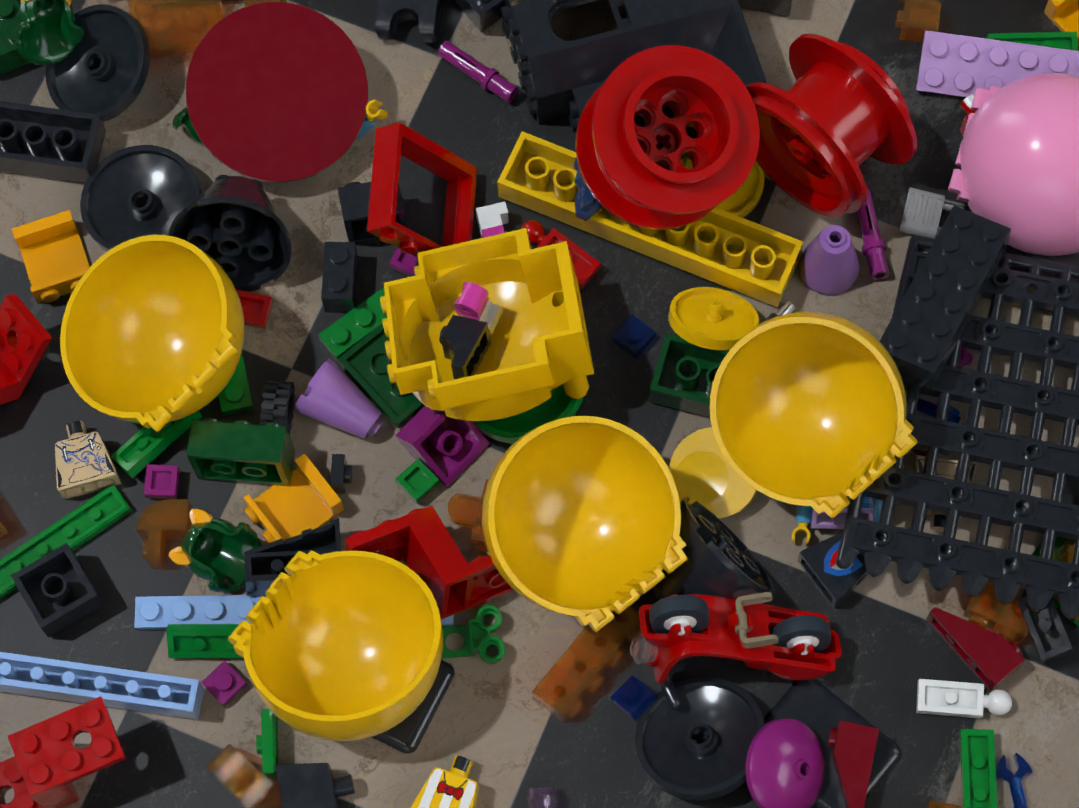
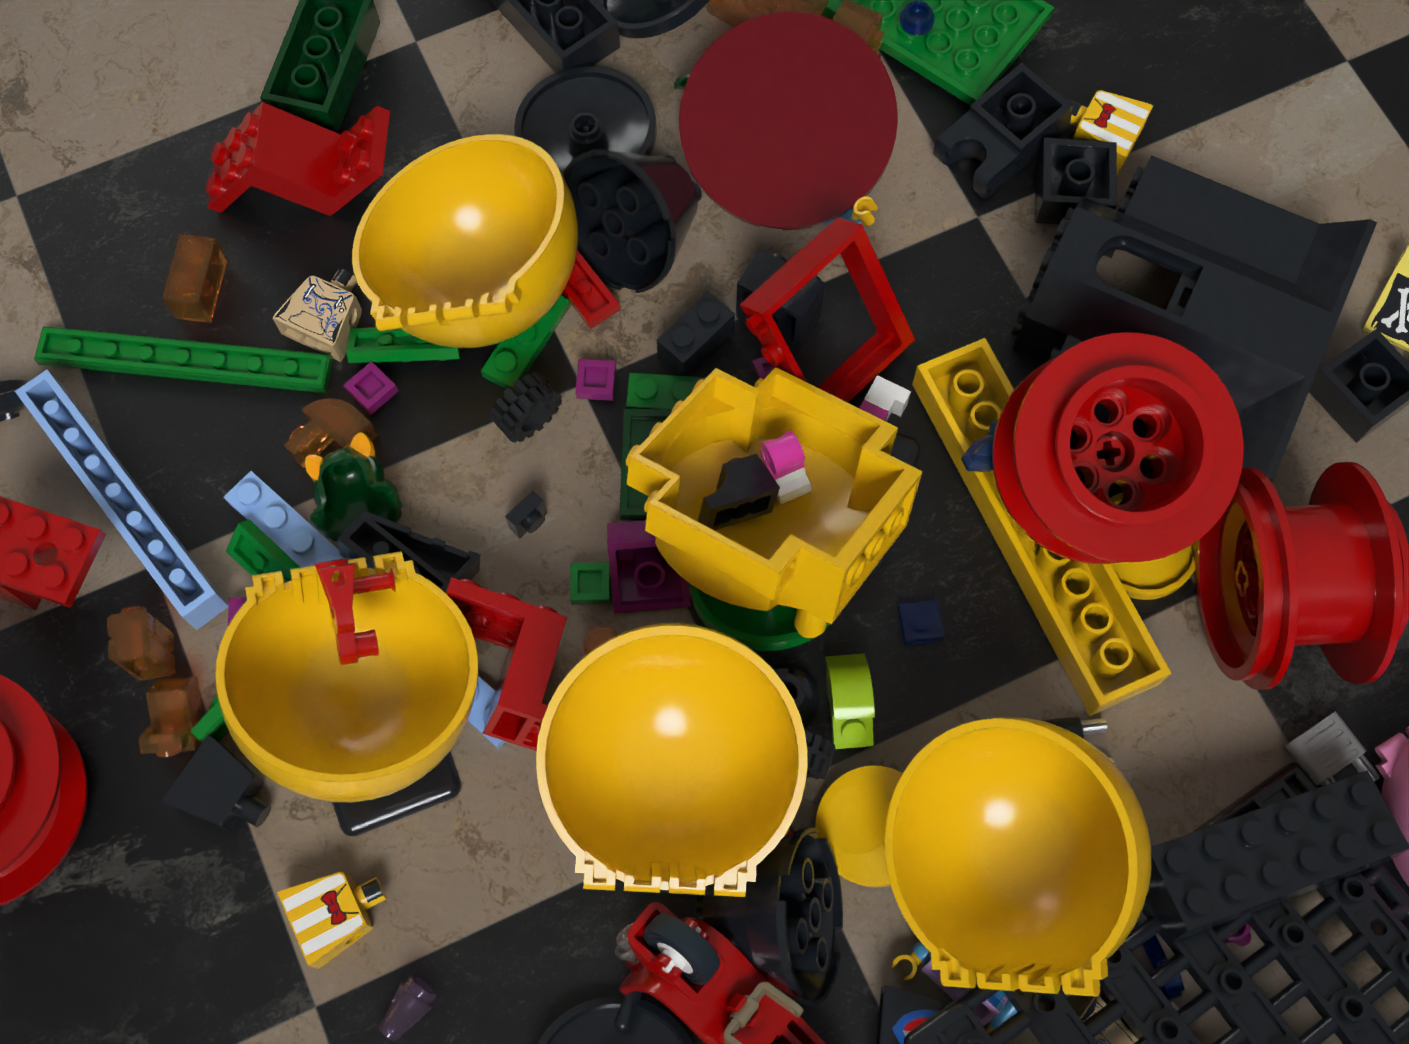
camera: 40 degrees right, 0 degrees up
(52, 255) = (475, 107): light orange panel -> none
(57, 590) = (188, 405): black brick -> none
(179, 751) = (140, 644): none -> clear orange brick
(241, 452) = (455, 418): dark green brick -> none
(297, 507) = (461, 508): light orange panel -> none
(301, 356) = (595, 379): none -> magenta plate
(321, 616) = (340, 599): none -> red piece
(339, 402) = (585, 447): medium lavender cone -> none
(477, 637) = (505, 780): green piece -> none
(488, 78) = (1002, 267): magenta pin -> none
(583, 263) = (929, 507): red plate -> none
(584, 663) = (563, 905): clear orange brick -> none
(633, 697) = (592, 978): clear blue plate -> none
(636, 411) = (850, 700): none -> lime brick
(685, 375) = (933, 699): dark green brick -> none
(711, 317) = (1010, 670): yellow piece -> none
(829, 262) = (1182, 717): medium lavender cone -> none
(873, 245) = (1245, 736): magenta pin -> none

